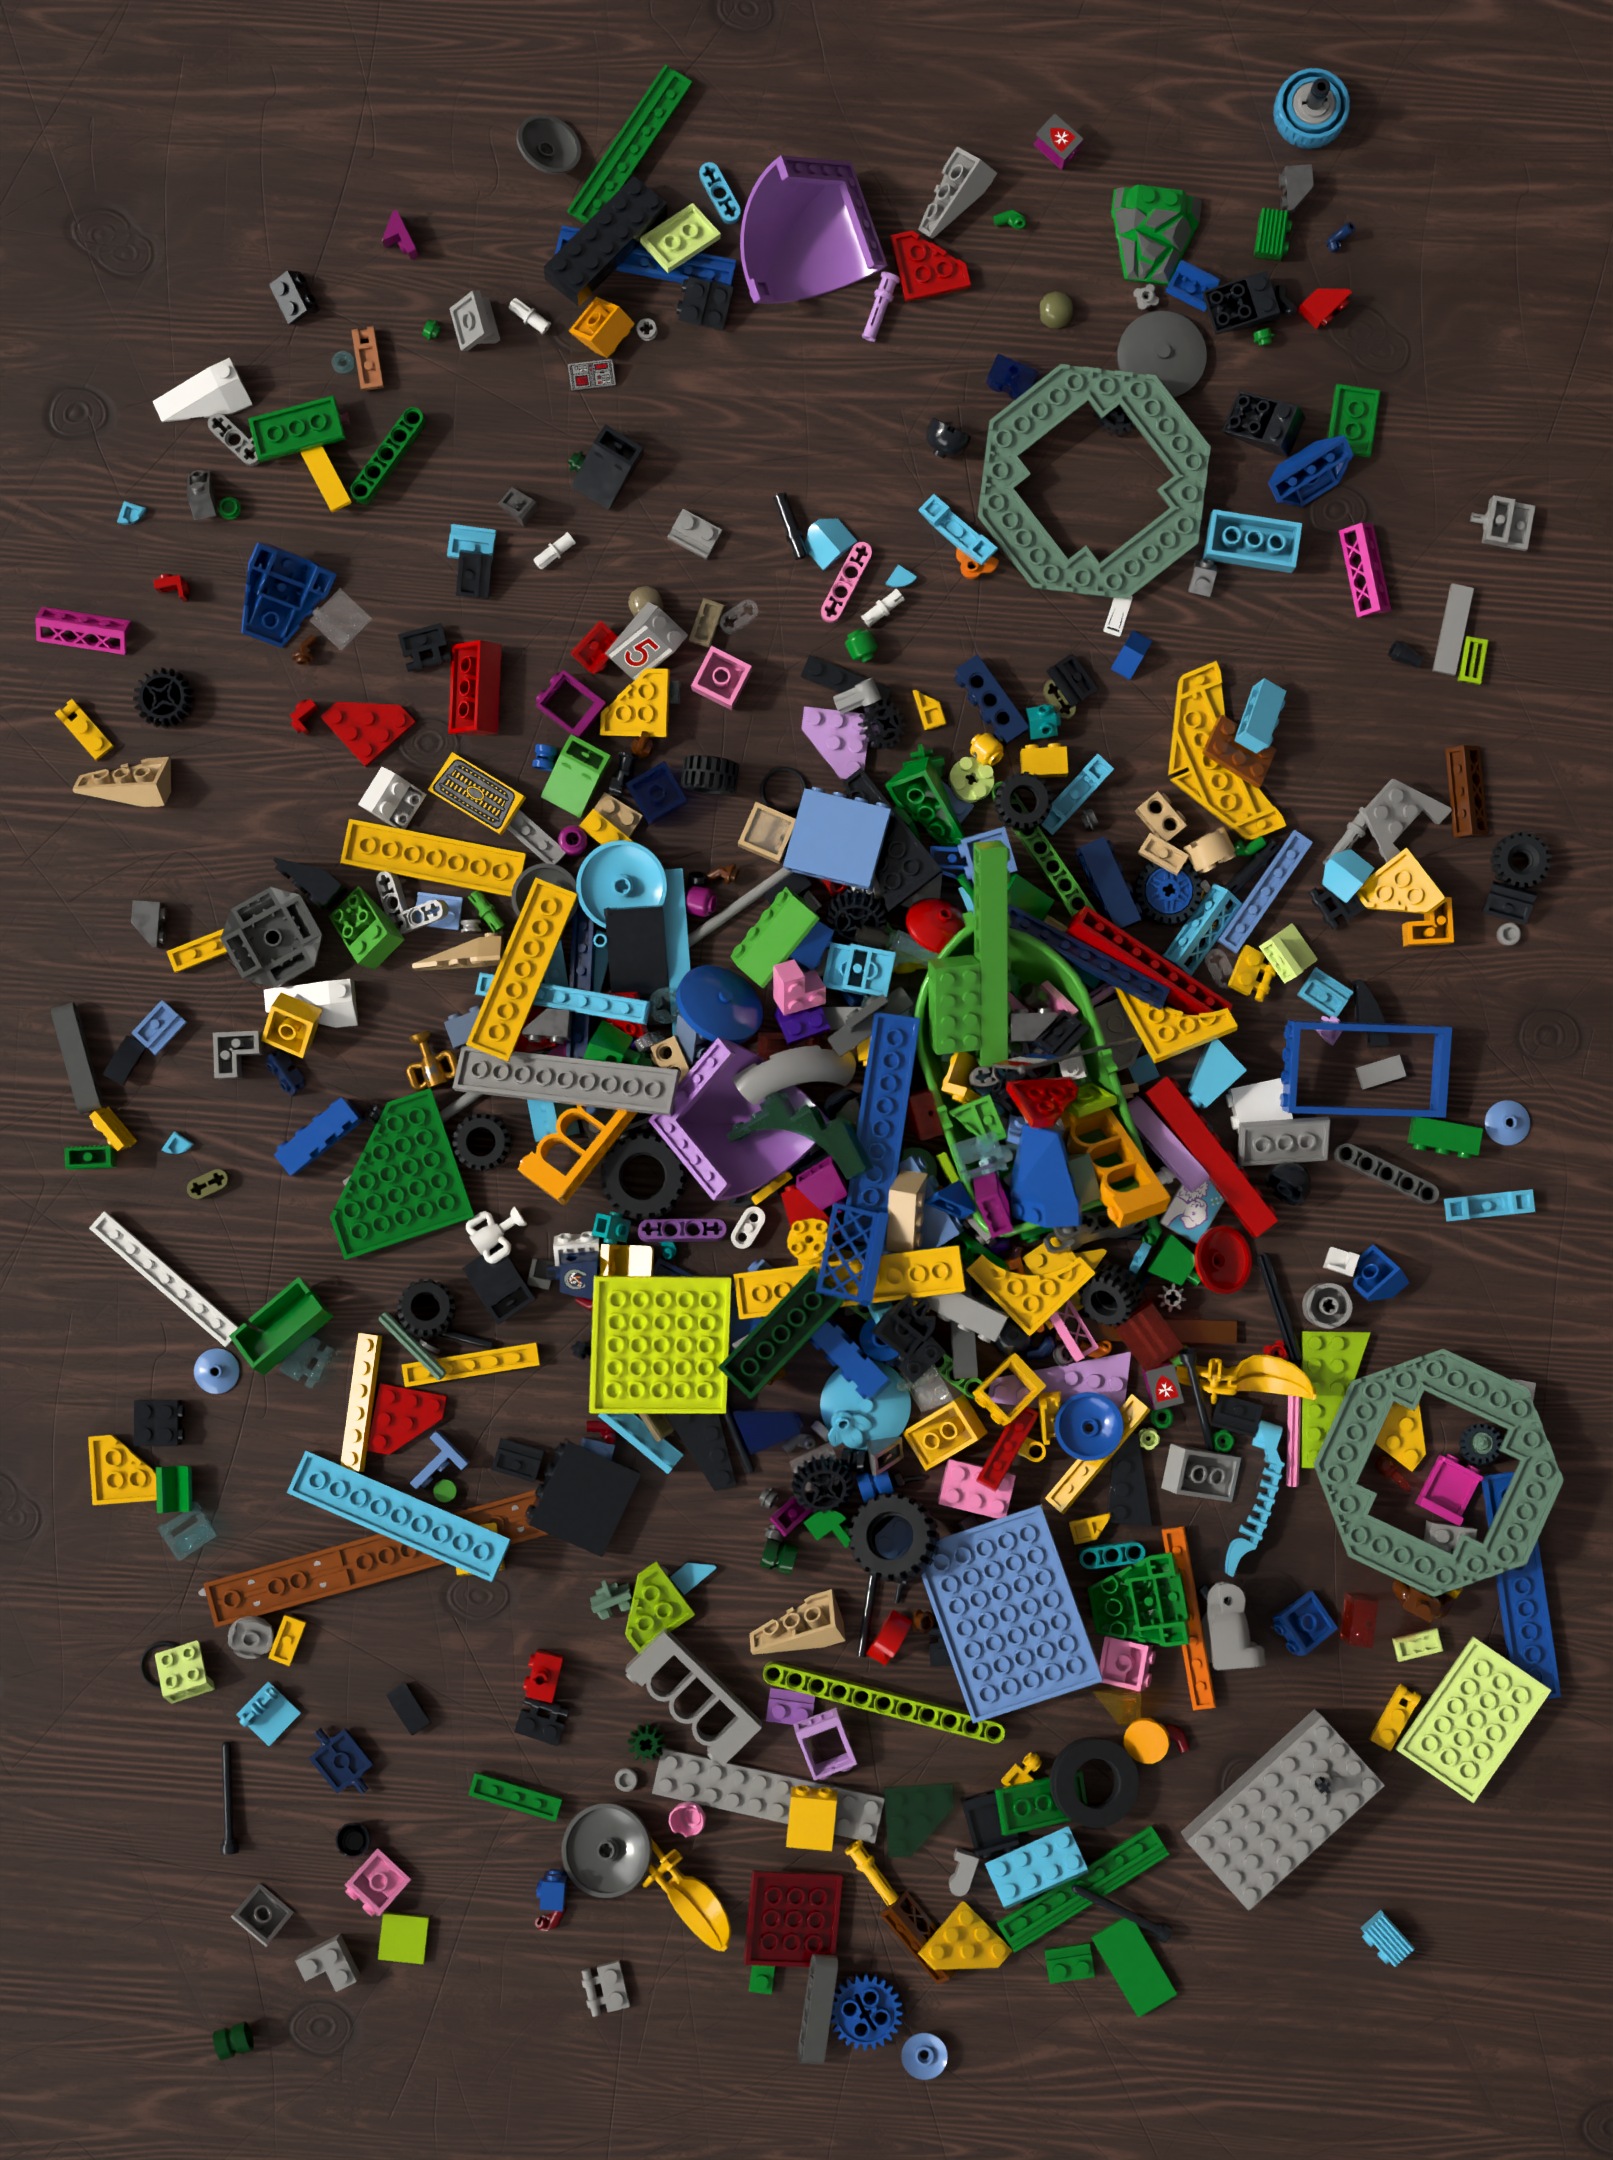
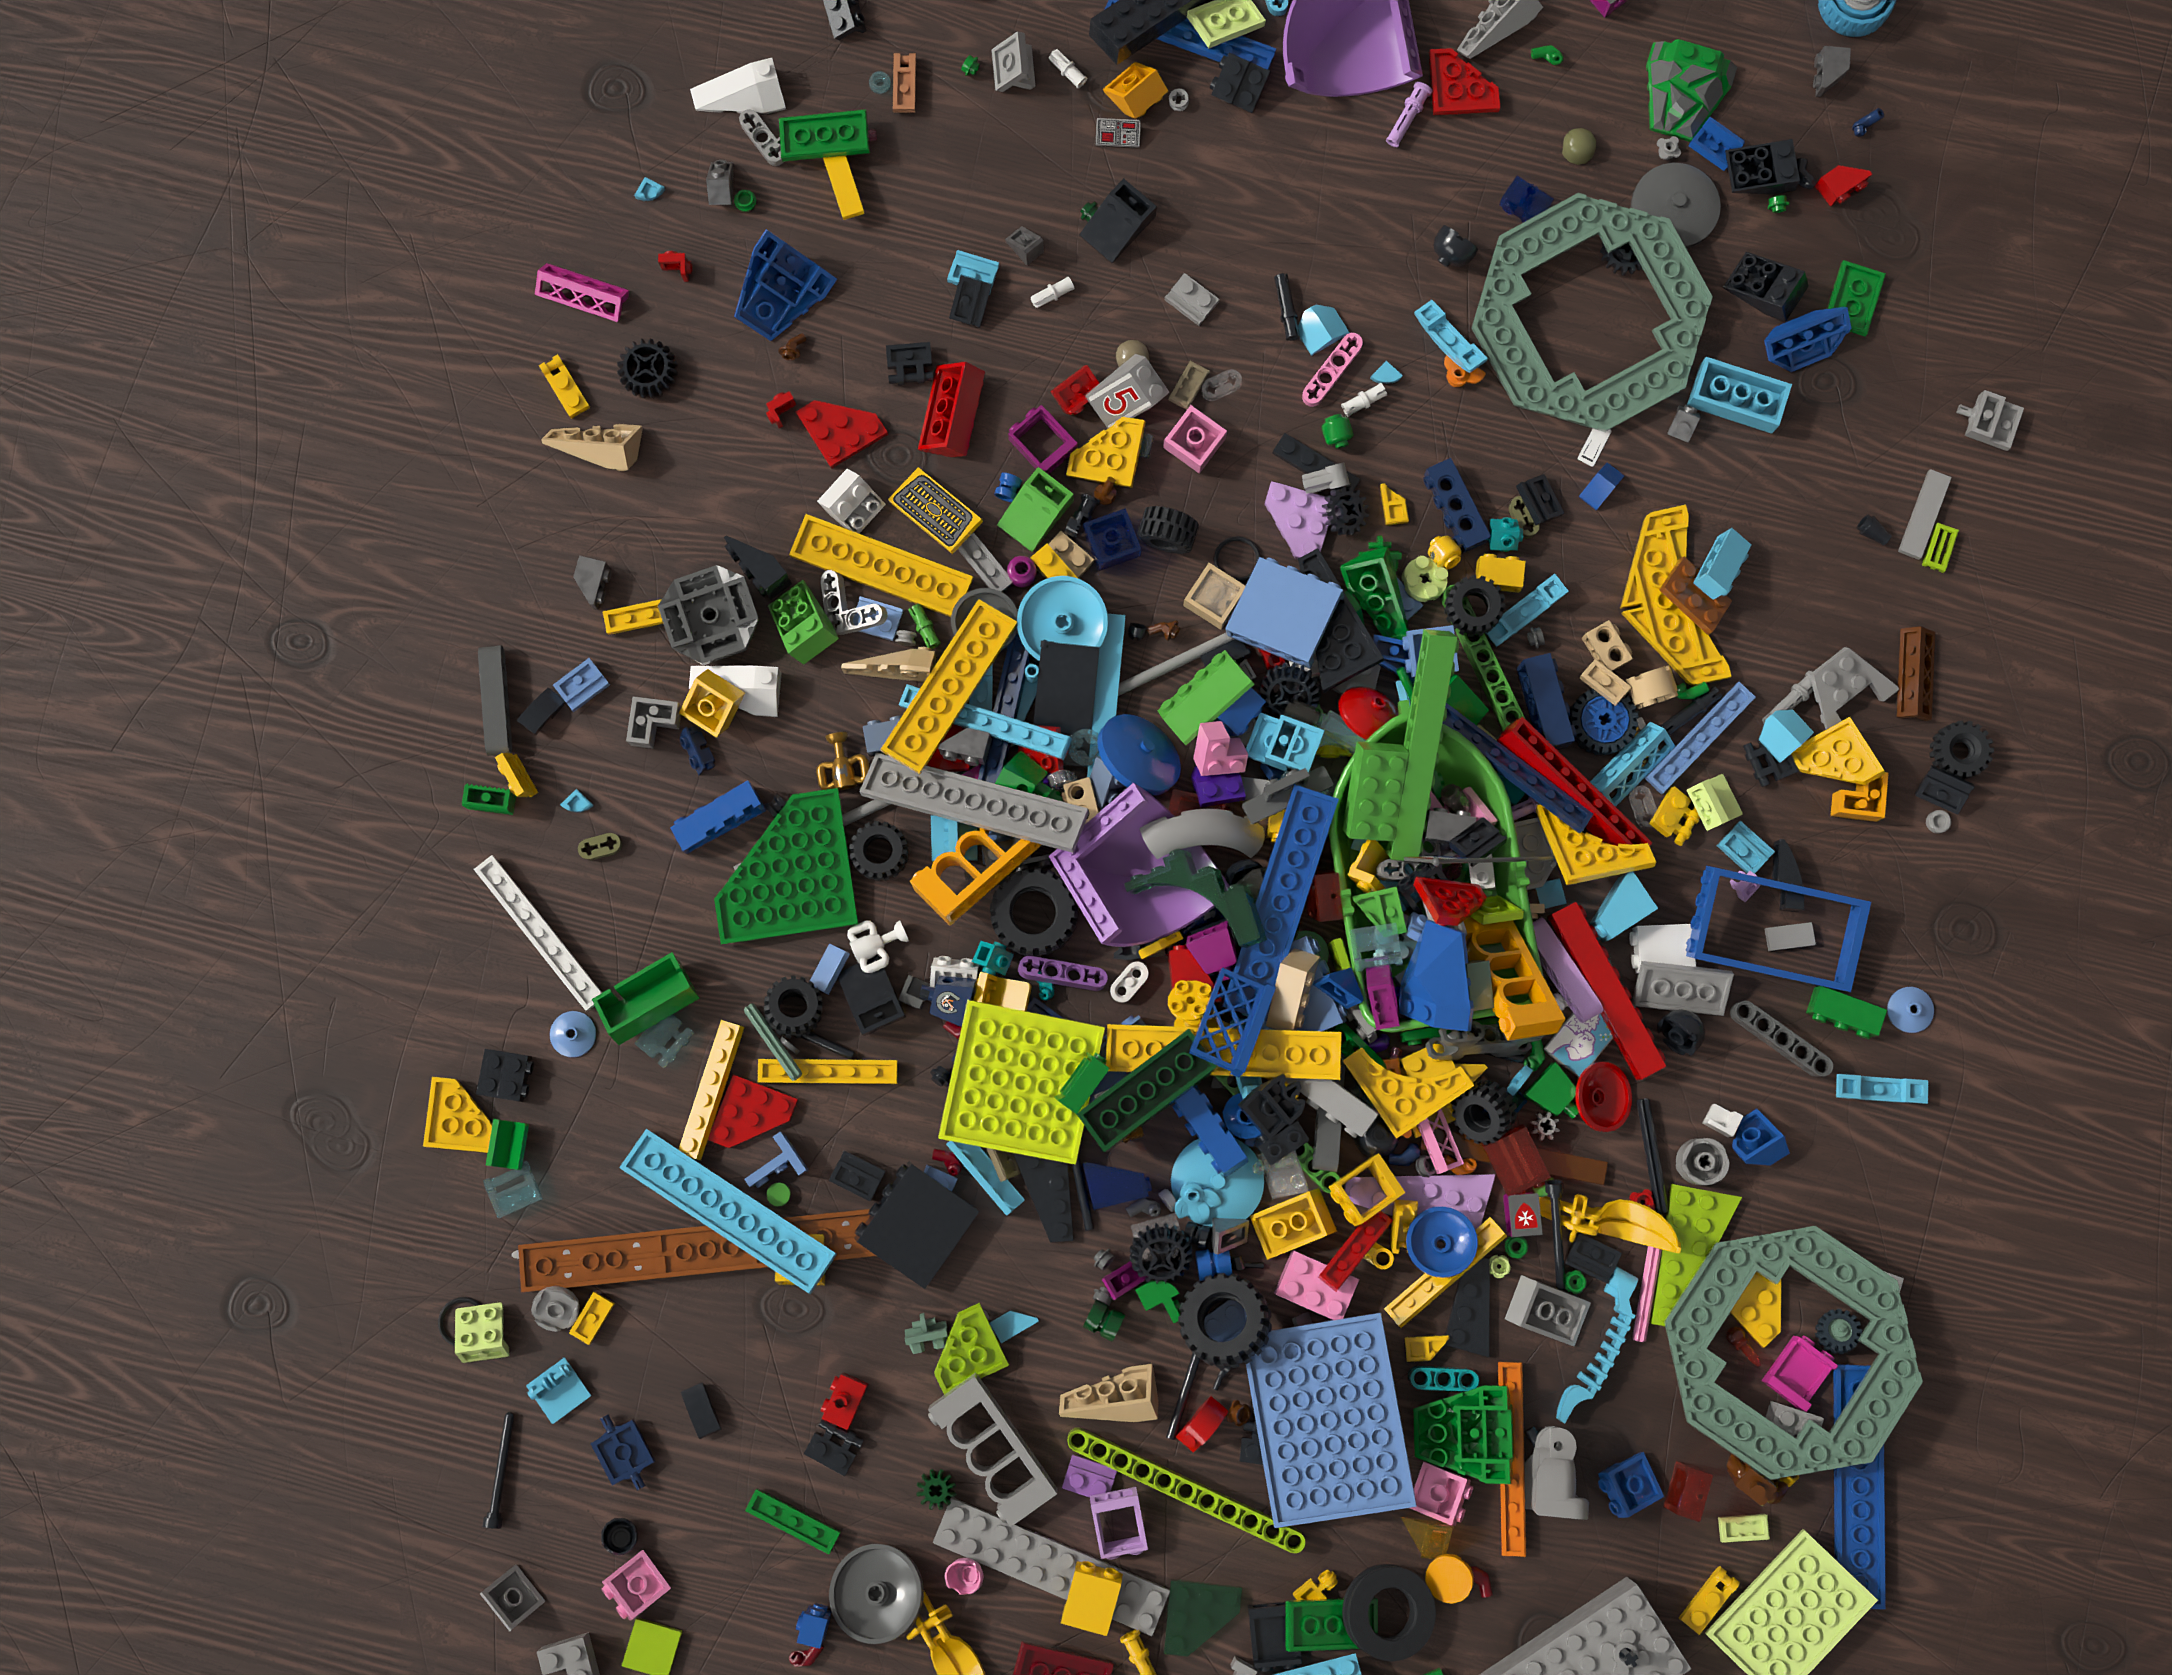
camera: 15 degrees right, 5 degrees down
(340, 619) = (832, 323): clear hinge -> none
(388, 445) = (909, 166): green beam -> none
(454, 1265) = (829, 968): none -> medium blue tile
(626, 1779) = (908, 1523): light grey tile -> none
(700, 901) = (1137, 652): magenta head -> none
(719, 1335) = (1082, 1082): none -> green window
(1271, 234) = (1800, 109): green brick -> none
(1372, 569) = (1853, 441): dark pink fence -> none

